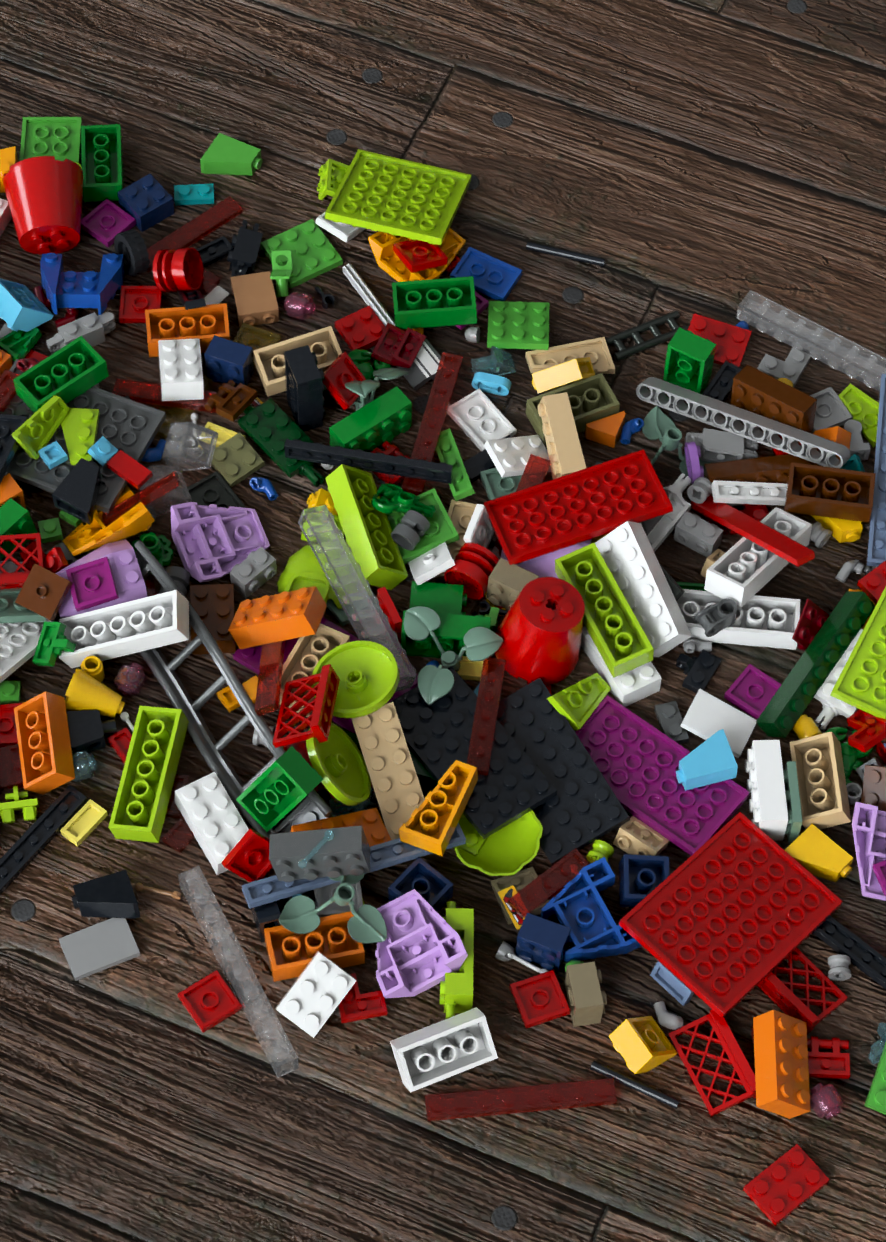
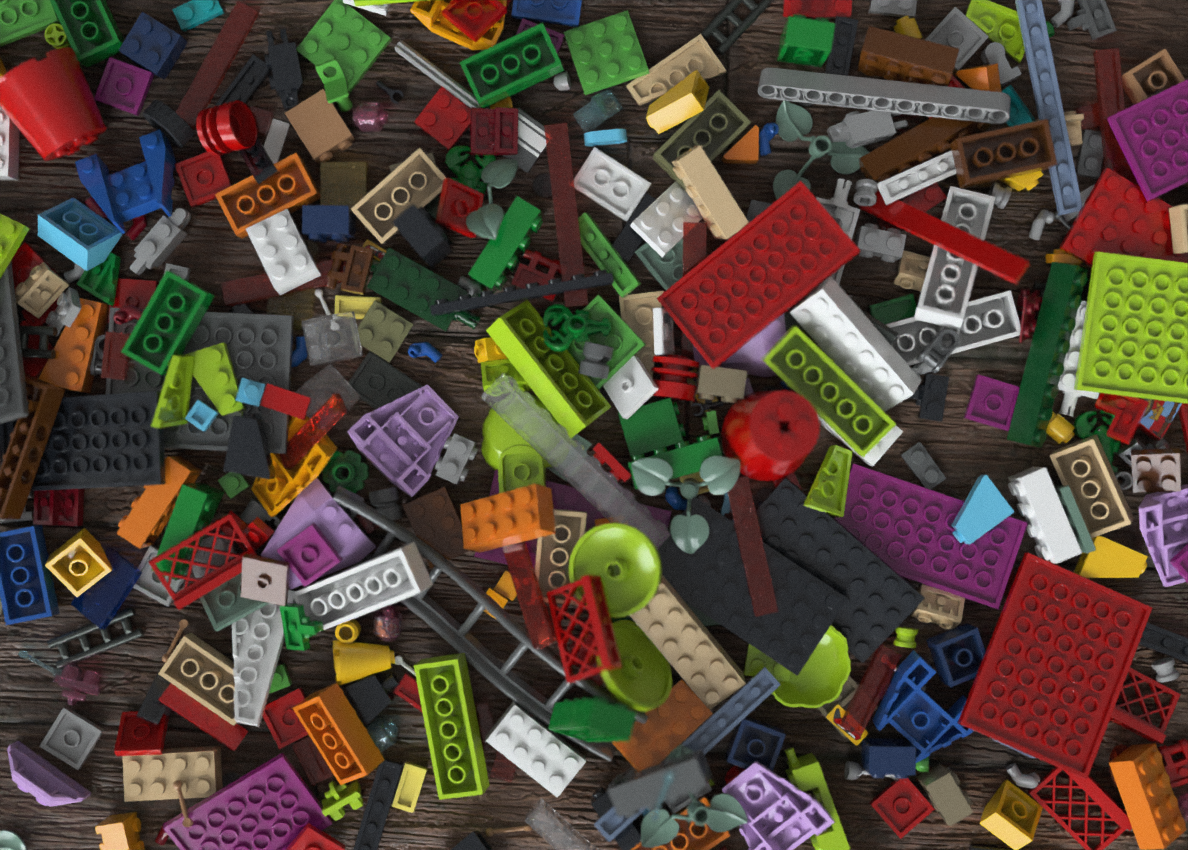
camera: 15 degrees left, 30 degrees up
(249, 857) = (587, 777): red plate -> none
(439, 814) = (751, 682): light orange wedge -> none
(692, 456) = (848, 164): medium lavender plate -> none
(711, 714) = (970, 452): white tile -> none

